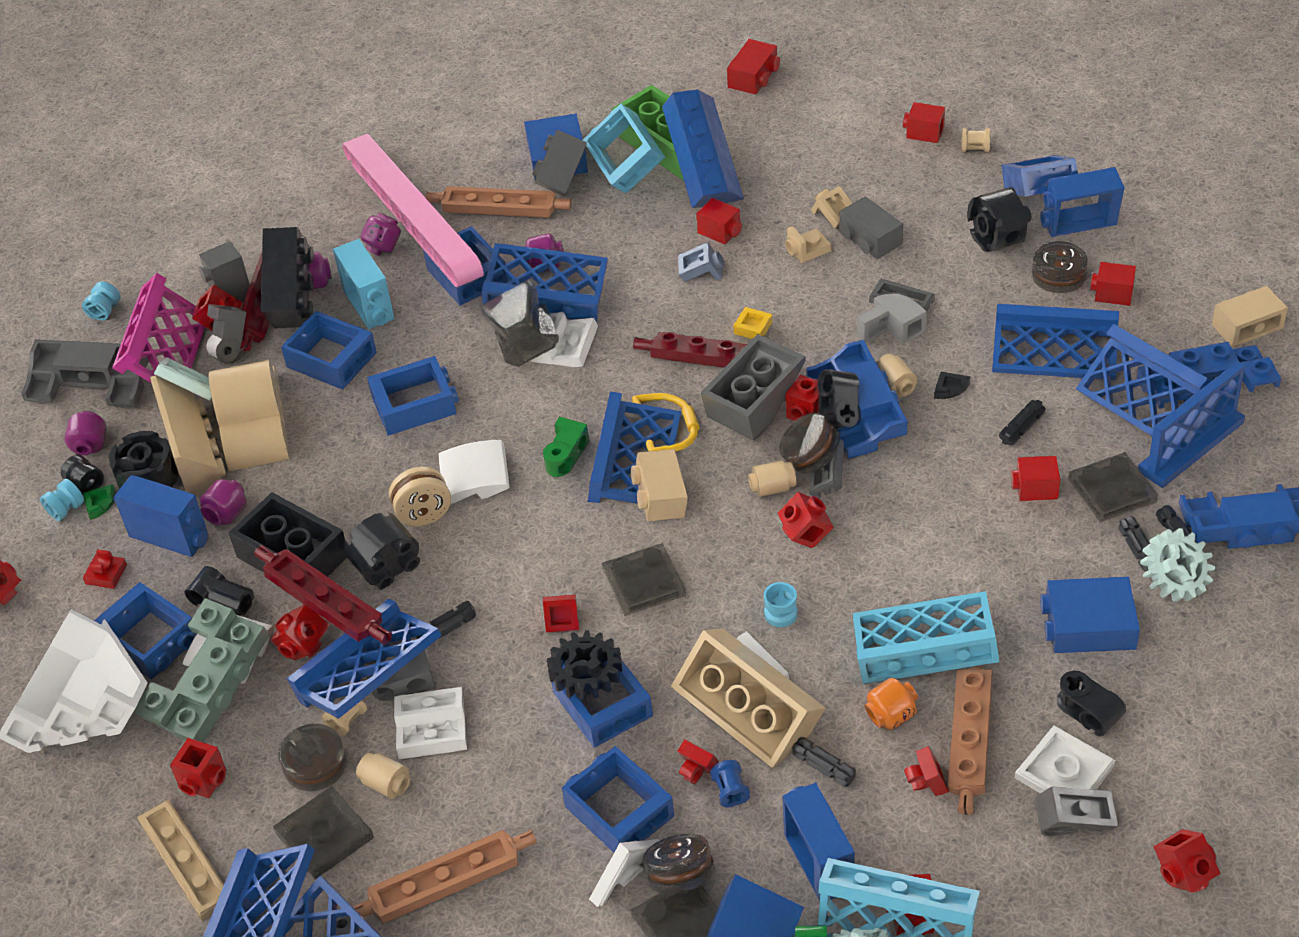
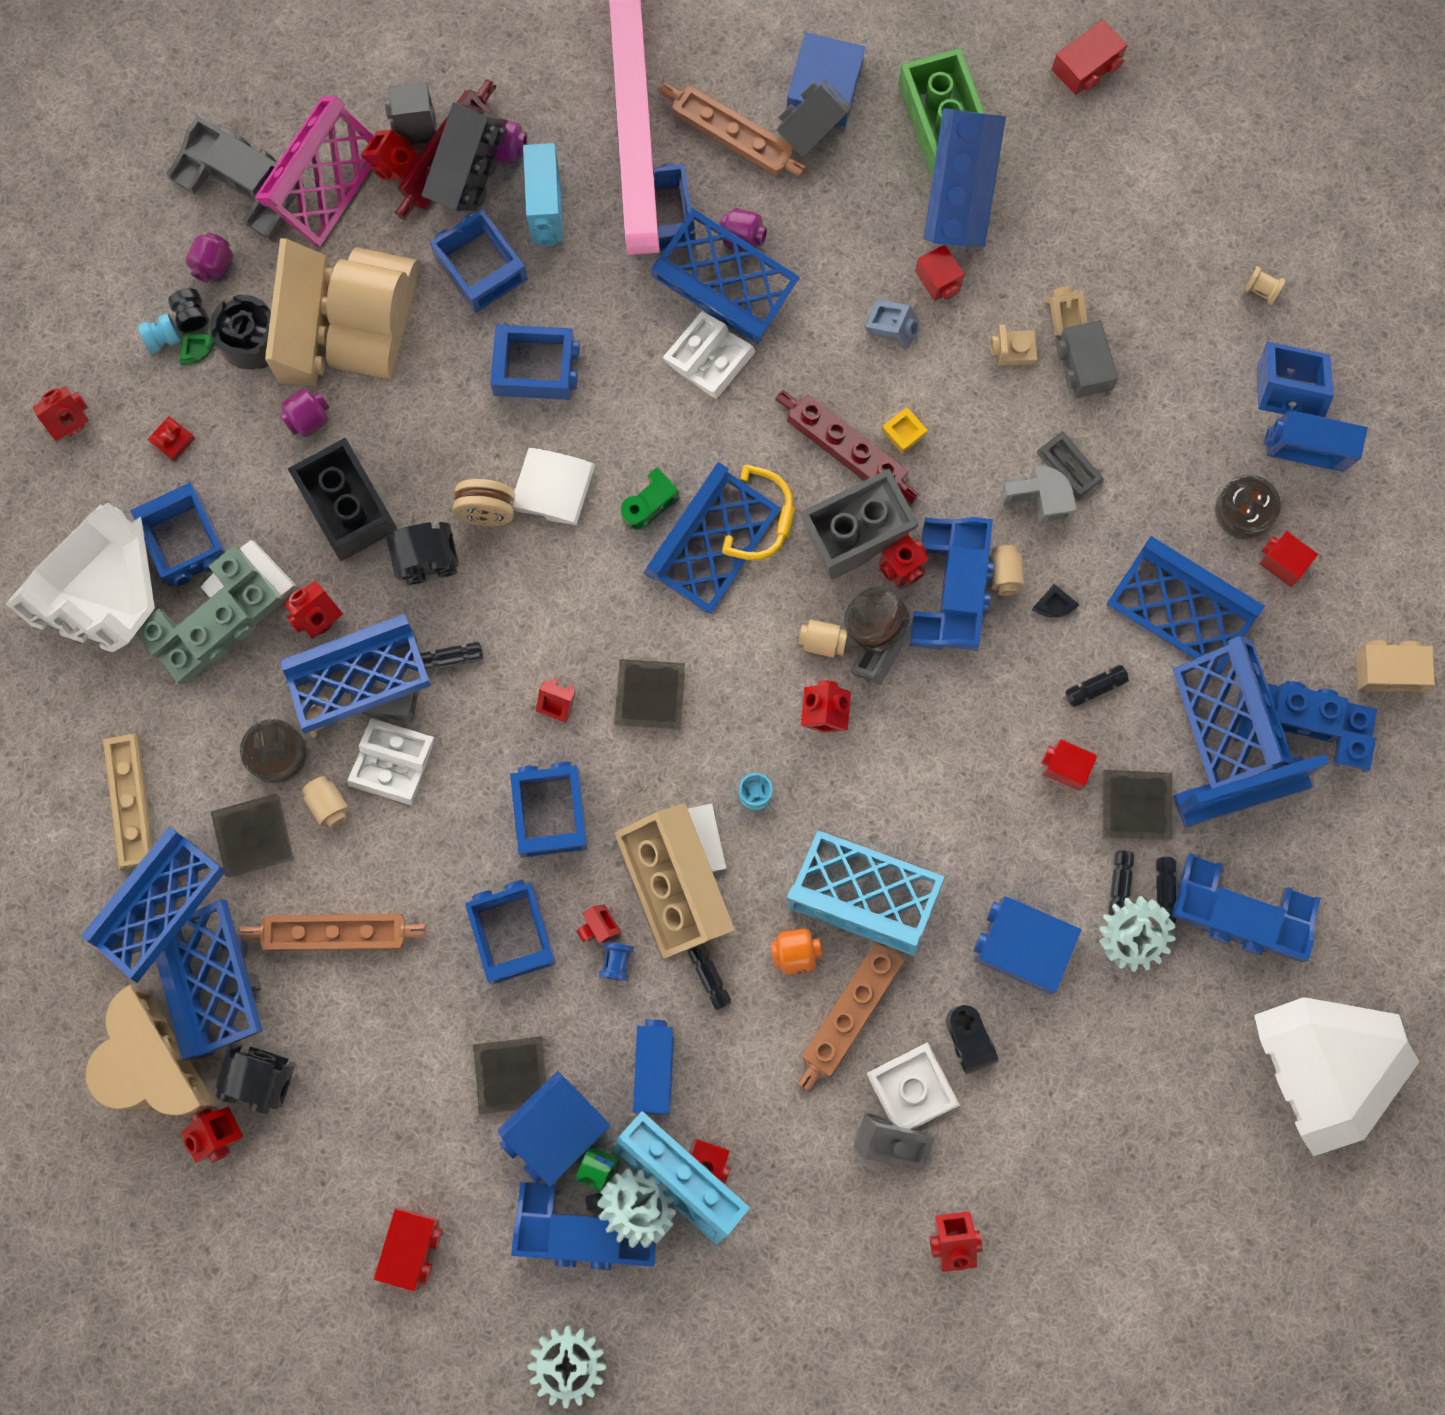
camera: 20 degrees right, 30 degrees up
(101, 301) = (284, 80): medium azure wheel -> none
(161, 515) = (238, 410): blue brick -> none
(184, 377) = (320, 241): light aqua tile -> none
(198, 768) = (158, 718): red brick -> none
(214, 587) = (259, 517): black piece -> none
(226, 332) = (386, 193): dark grey leg -> none
(322, 595) = (341, 590): dark red plate -> none
(380, 234) = (592, 123): magenta head -> none
(521, 324) = (673, 329): clear smoke piece -> none
(584, 665) = (552, 786): black gear -> none
(621, 869) = (490, 1000): white tile -> none
(638, 163) = (909, 154): medium azure window -> none
(659, 485) = (711, 599): tan brick -> none
(678, 863) = (529, 1027): clear smoke head -> none
(838, 396) = (928, 582): black piece -> none
(924, 122) = (1225, 234): red brick -> none
(926, 773) = (791, 1038): red tile -> none
(998, 219) = (1218, 419): black brick -> none

